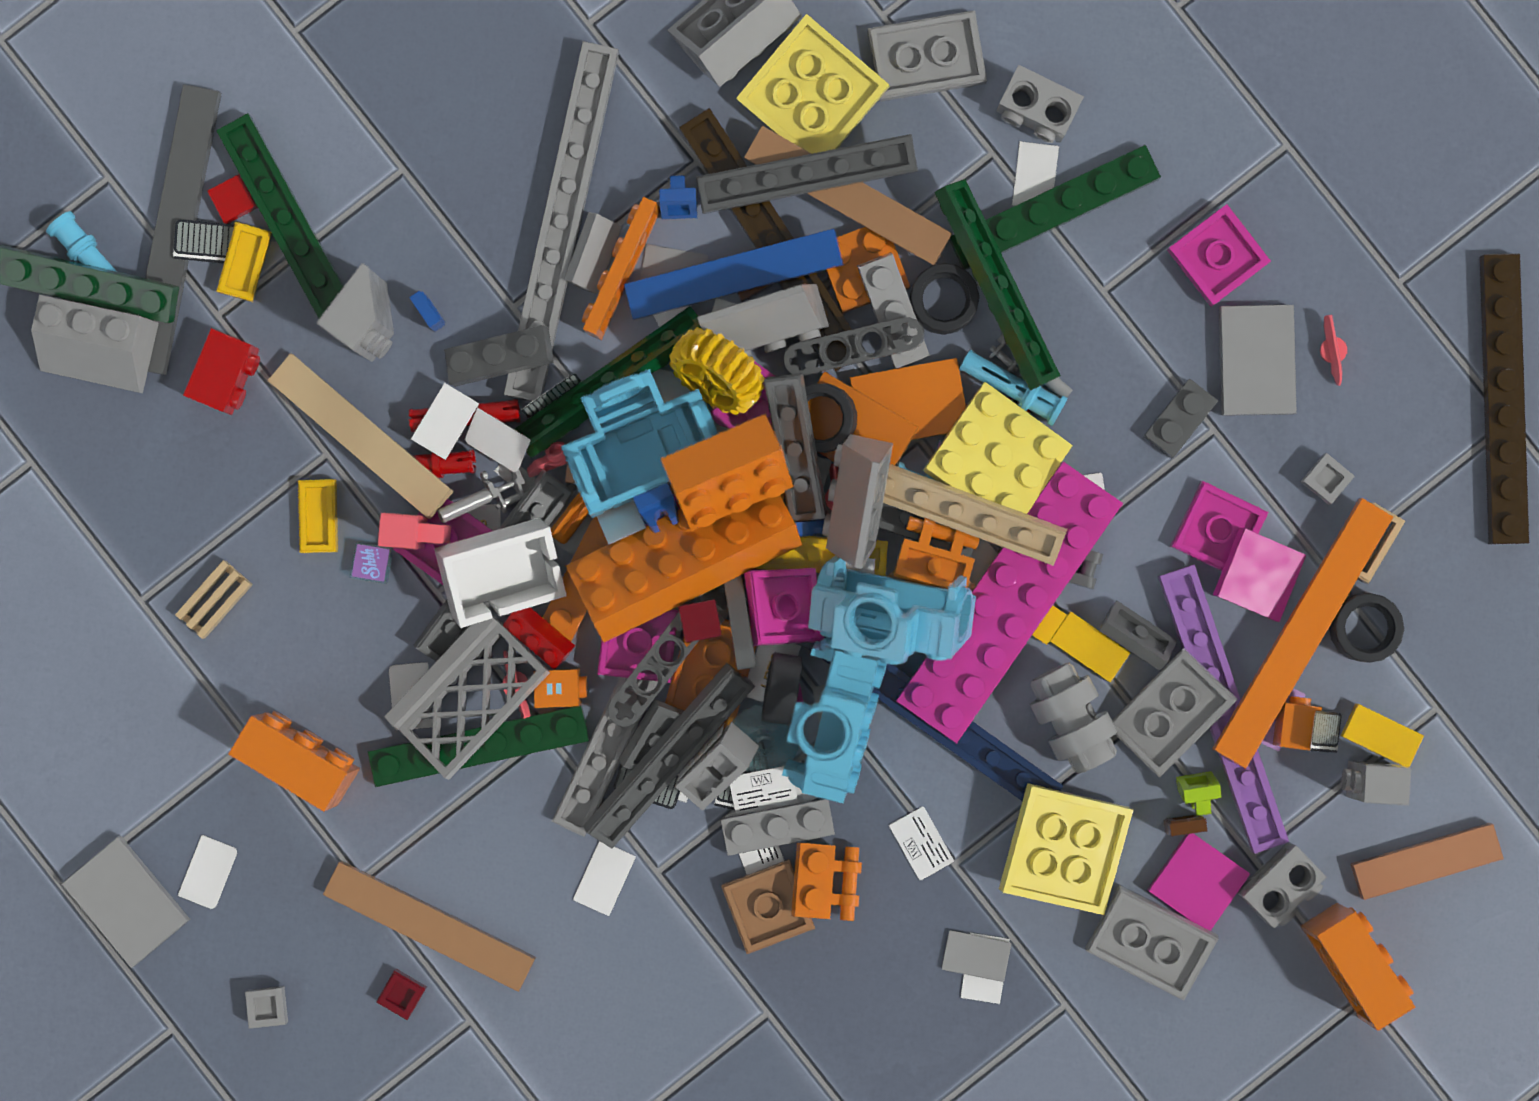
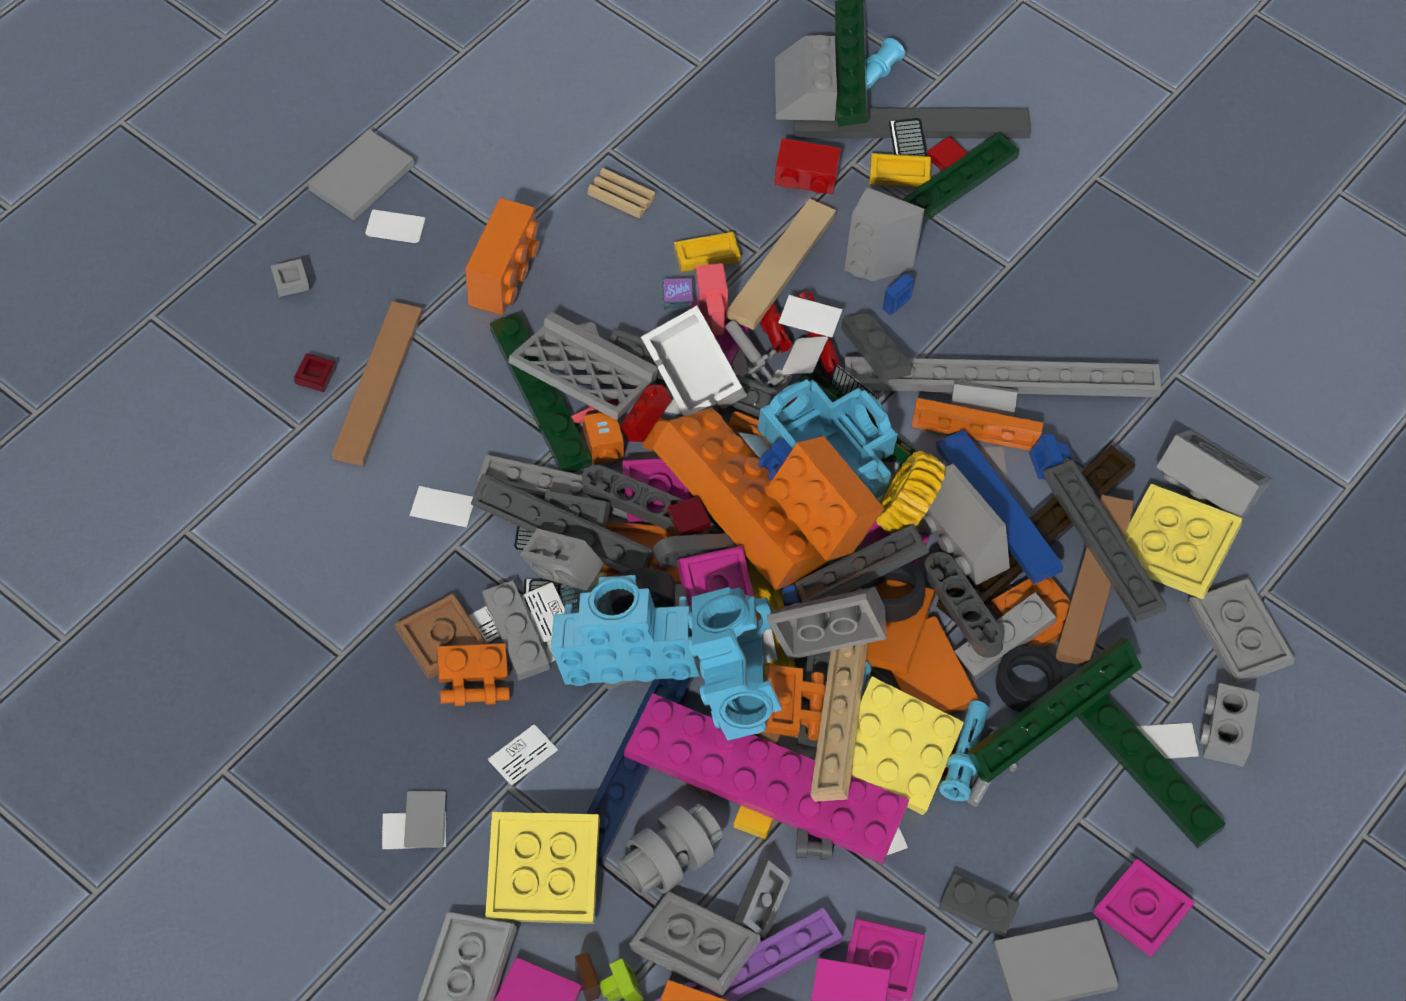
camera: 70 degrees right, 30 degrees down
(1090, 647) = (739, 863): yellow tile -> none

